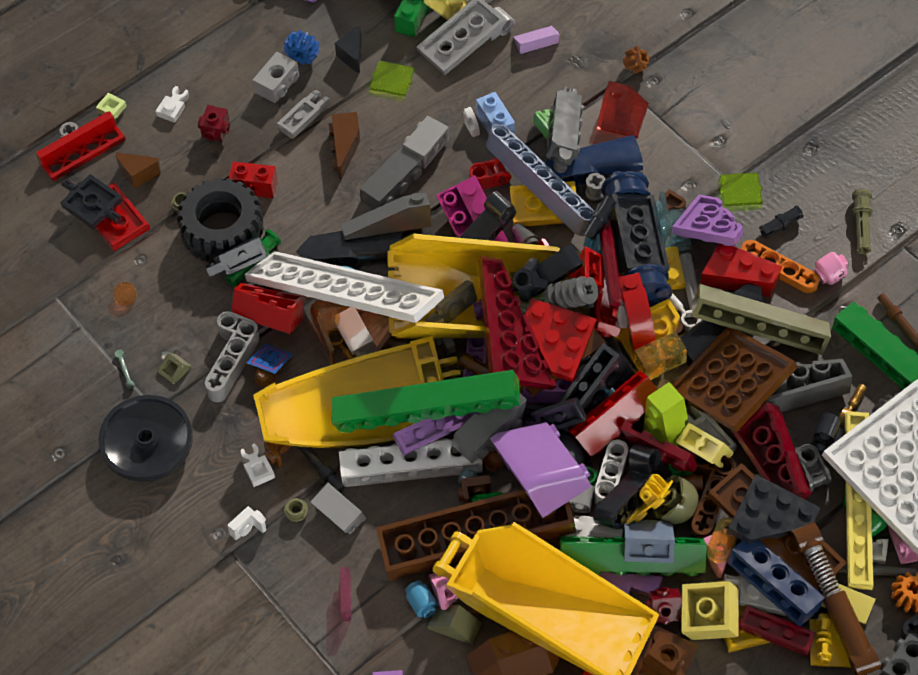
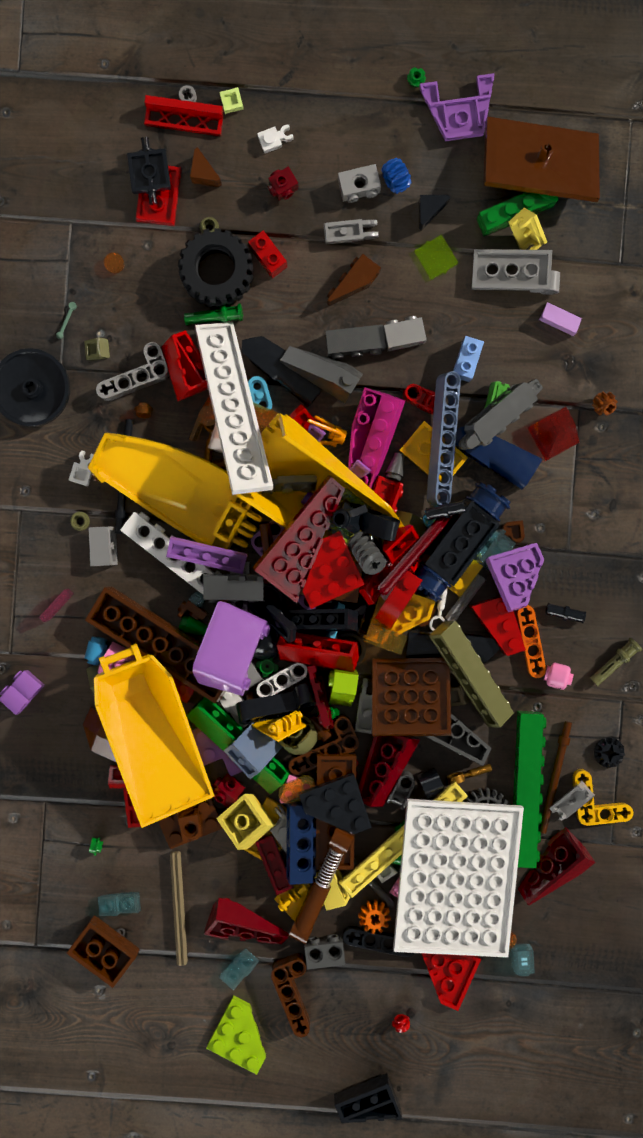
camera: 40 degrees right, 30 degrees up
(237, 257) = (198, 310): hinge -> none
(244, 521) = (38, 502): white bracket -> none
(269, 358) = (157, 401): blue sticker -> none
(426, 401) = (205, 539): green brick -> none
(471, 122) = (450, 346): white tile -> none
(492, 220) = (362, 446): black beam -> none
(594, 184) = (471, 476): light grey bush -> none
(704, 445) = (348, 722): light yellow hinge -> none
(741, 189) = (568, 563): clear neon green piece -> none

